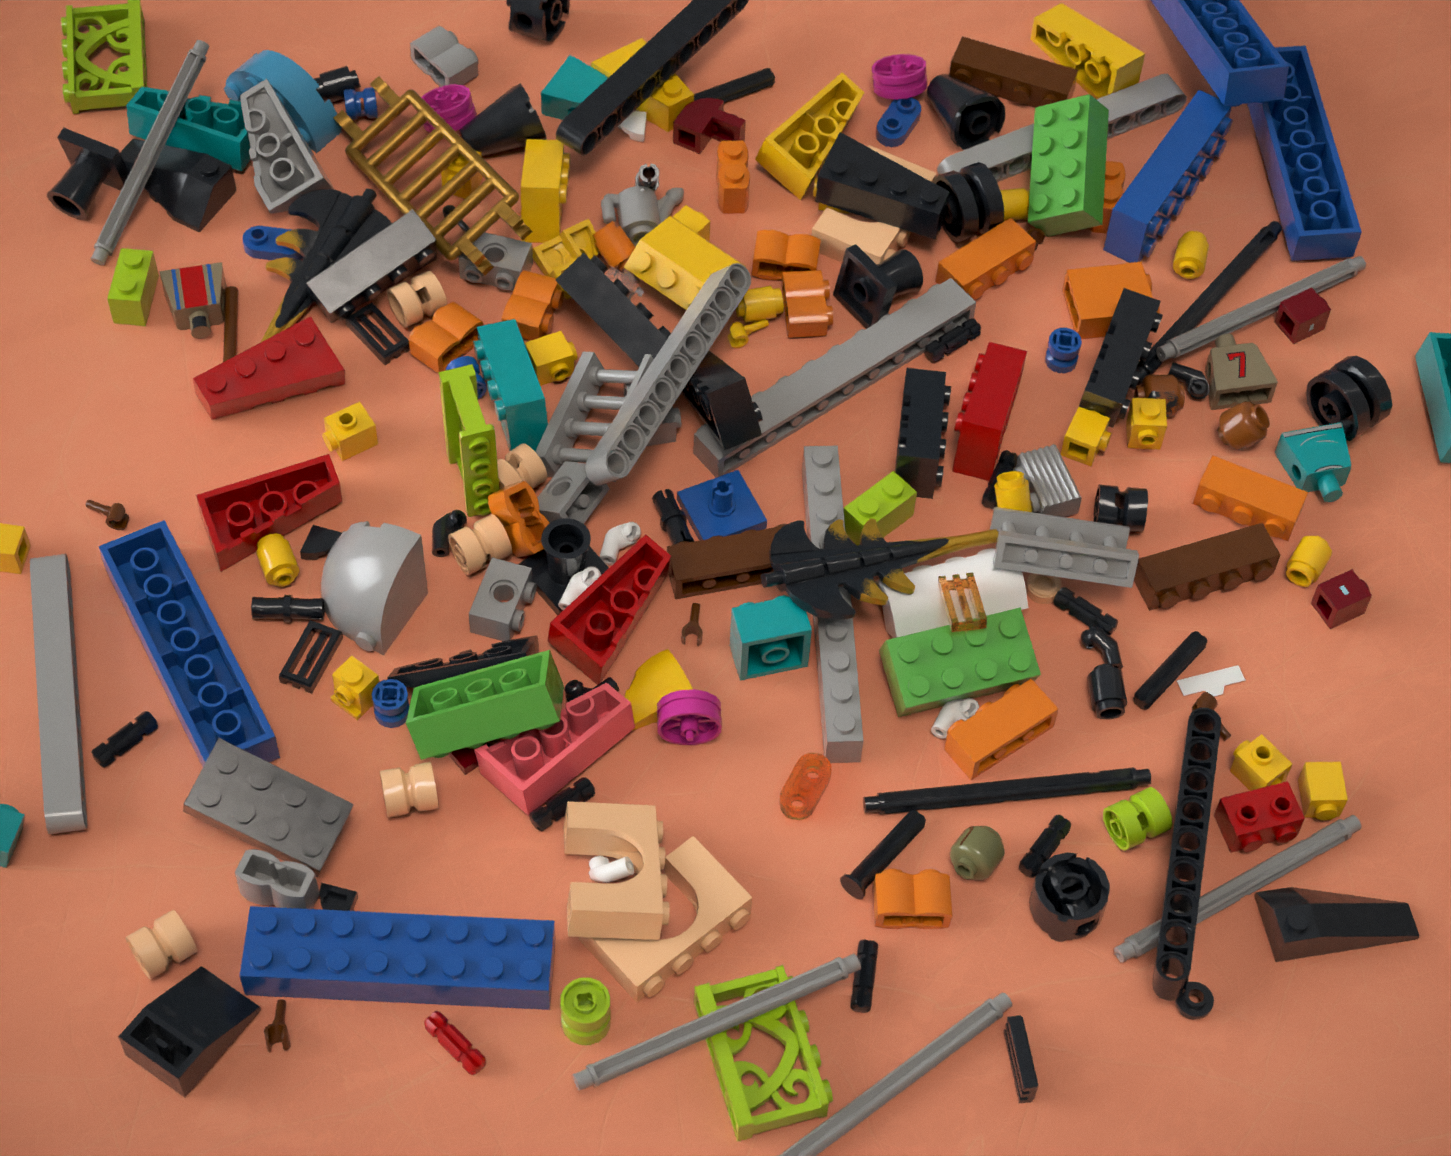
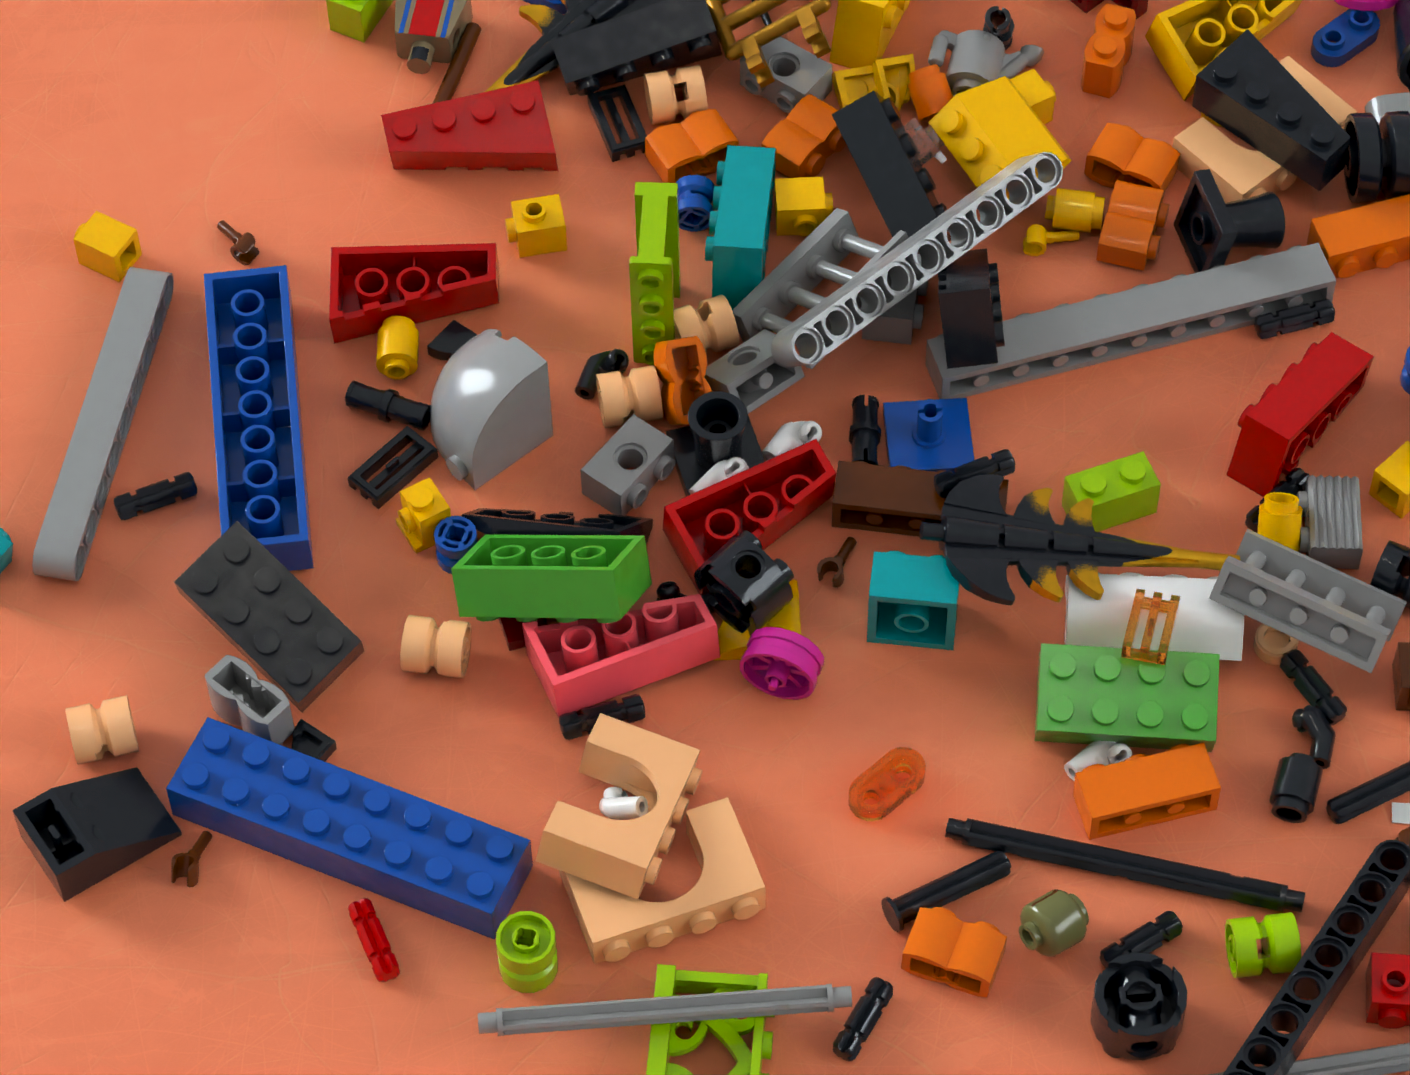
camera: 25 degrees right, 0 degrees up
(639, 663) = (745, 583): none -> black brick
(759, 537) = (1001, 464): none -> black axle
(833, 637) = (992, 625): light grey brick -> none
(921, 430) = (1201, 416): black wedge -> none

